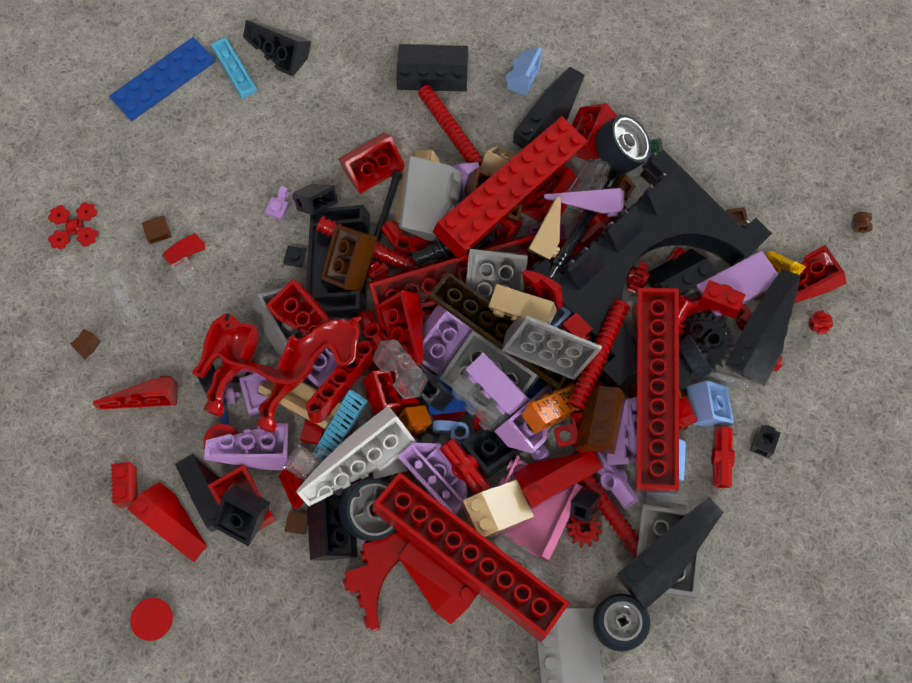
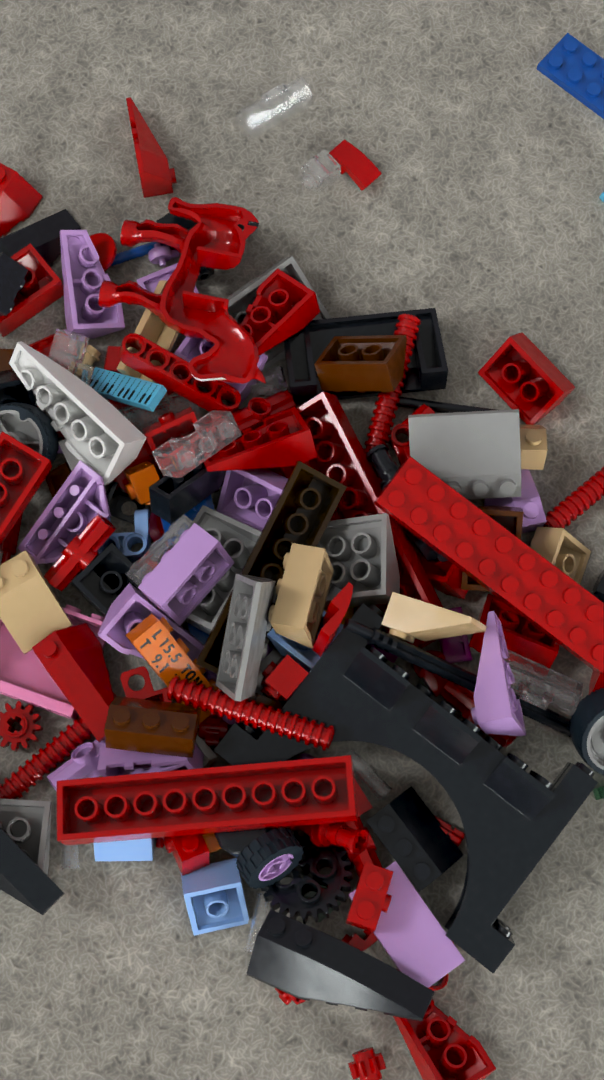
camera: 80 degrees right, 5 degrees up
(73, 226) = (370, 32): red plant -> none
(85, 343) = (207, 75): reddish brown piece -> none
(124, 484) = (31, 154): red brick -> none
(156, 229) = (379, 127): reddish brown piece -> none
(278, 206) = (438, 269): lavender plate -> none
(294, 256) = (367, 301): black plate -> none
(309, 199) = (452, 310): black torso -> none
(377, 270) = (357, 409): red gear -> none
(541, 454) = (118, 660): lavender piece -> none
(585, 505) = (43, 720): black brick -> none
(625, 184) = (549, 743): reddish brown plate -> none
(637, 277) = (399, 772): red gear -> none
(723, 457) = (137, 919): red piece -> none
(738, 215) = (527, 925): reddish brown plate -> none
(760, 447) = (154, 982): black brick -> none
(783, 262) = (454, 1003): yellow hinge -> none

